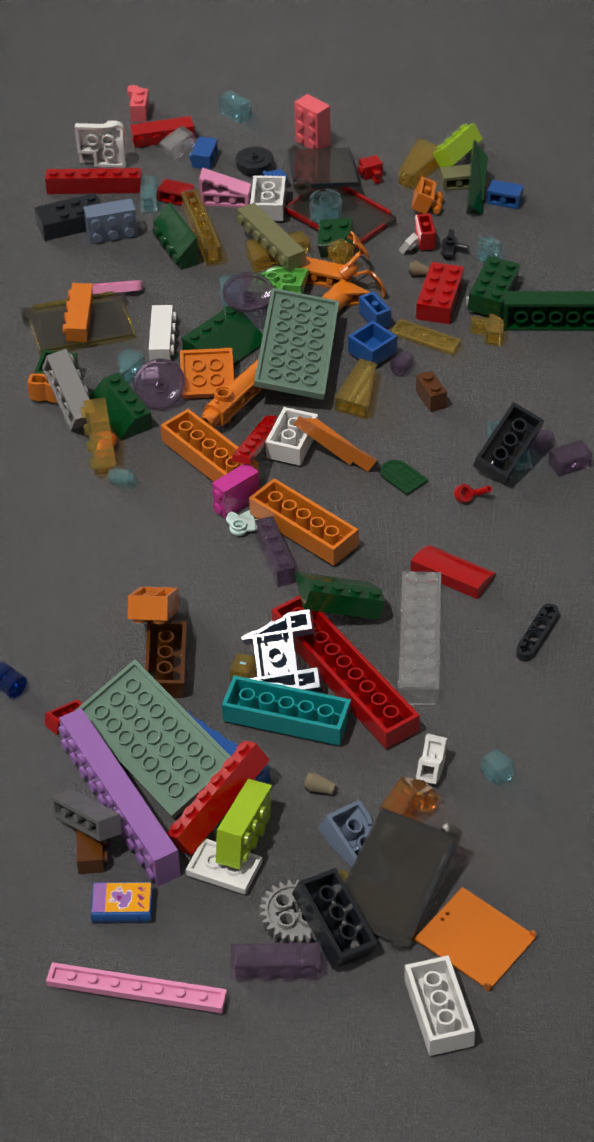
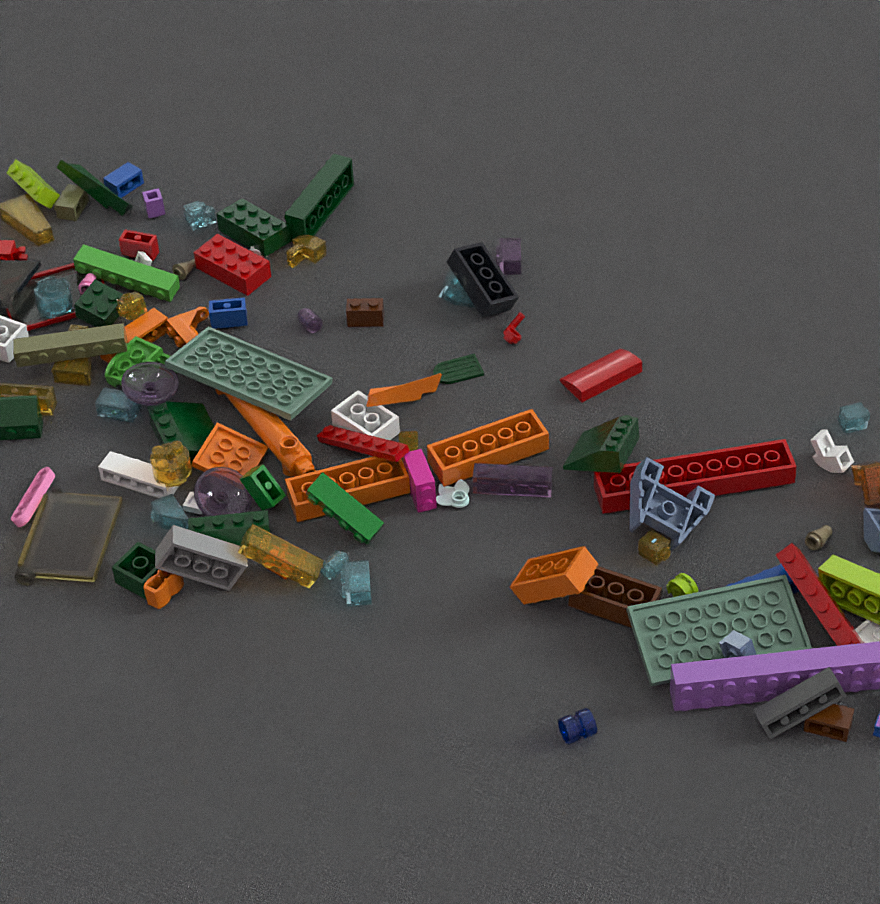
camera: 65 degrees left, 0 degrees up
(52, 717) = (644, 698): red slope -> none
(79, 312) = (67, 525): orange brick -> none
(104, 495) = (357, 583): none -> clear light blue brick
(126, 754) = (736, 645): none -> sand blue brick
(166, 338) = (171, 464): none -> clear yellow brick
(172, 454) = (344, 508): none -> green brick
(175, 399) = (262, 487): none -> green brick
(198, 702) = (681, 585): none -> lime wheel
(283, 474) = (409, 438): none -> clear yellow bracket
(286, 710) = (725, 529): teal brick -> none
(350, 267) = (166, 304): orange plant -> none
(357, 391) = (328, 358): clear yellow slope -> none
(360, 221) = (86, 282): none -> bright pink cone
(372, 343) = (275, 328): blue piece -> none
(385, 238) = (126, 273): none -> bright green brick
(420, 637) = (677, 415): clear brick -> none
(426, 336) = (283, 293): clear yellow plate -> none
(427, 197) = (85, 230): orange brick -> none
(450, 244) = (166, 238): black piece -> none
(483, 219) = (153, 203): none -> medium lavender brick
(540, 633) = (691, 333): black beam -> none

